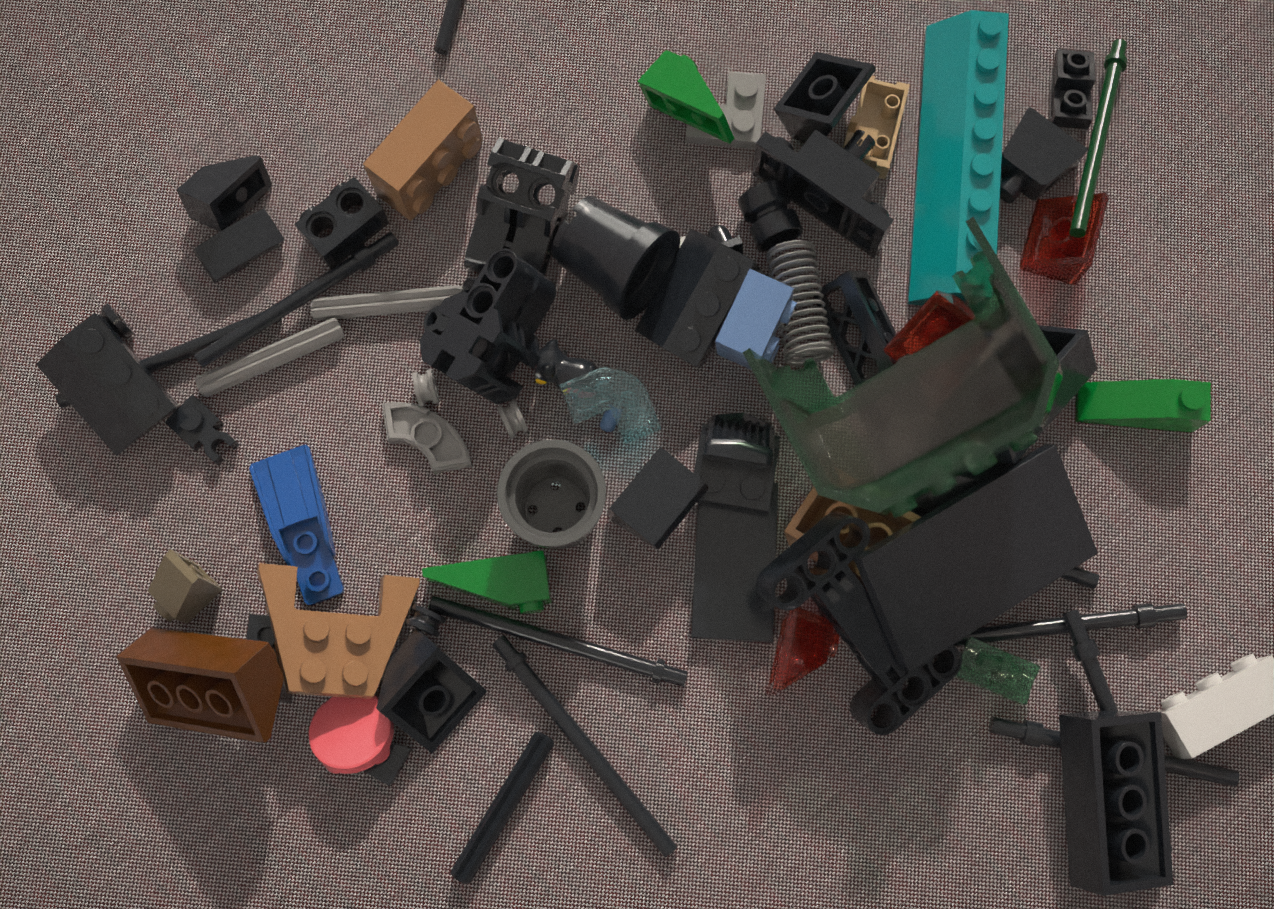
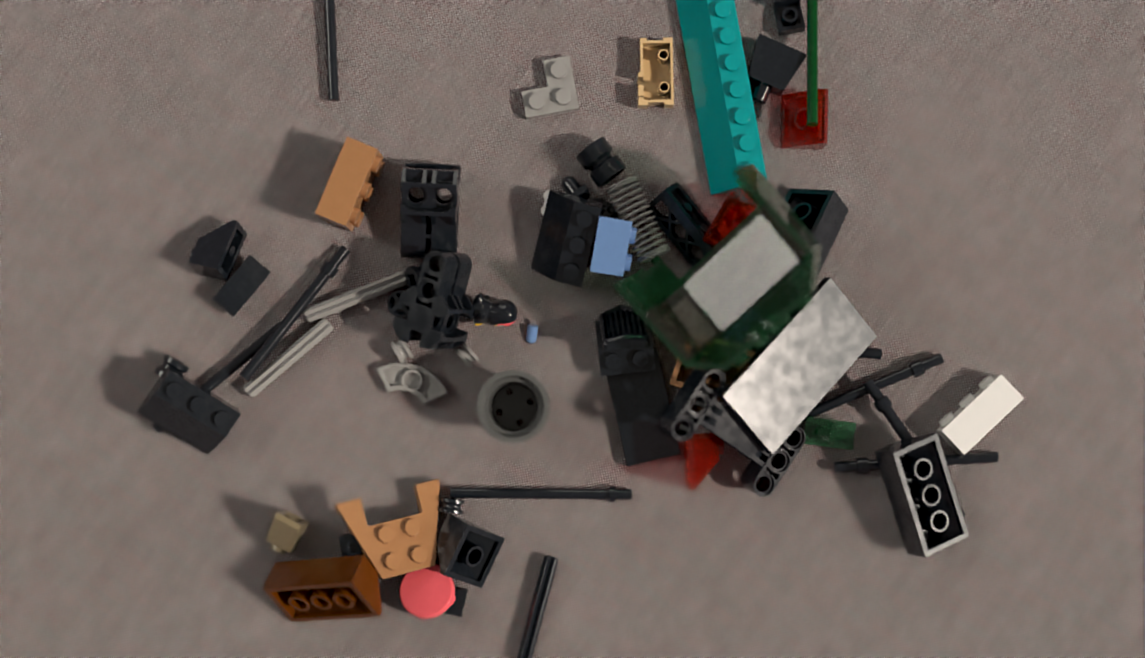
camera: 20 degrees left, 10 degrees up
(199, 427) = (256, 418): black plate -> none
(299, 520) = (344, 461): blue piece -> none
(348, 229) = (313, 253): black brick -> none
(508, 580) = (497, 465): green slope -> none
(517, 663) = (576, 554): black bar -> none
(612, 390) = (528, 319): clear light blue plate -> none
(615, 254) = (504, 223): black piece -> none
(657, 499) = (580, 384): black slope -> none
(679, 91) = (514, 88): green slope -> none
(821, 94) = (614, 66): black slope -> none
(829, 184) = (636, 129): black brick -> none
(1146, 404) = (885, 224): green slope -> none

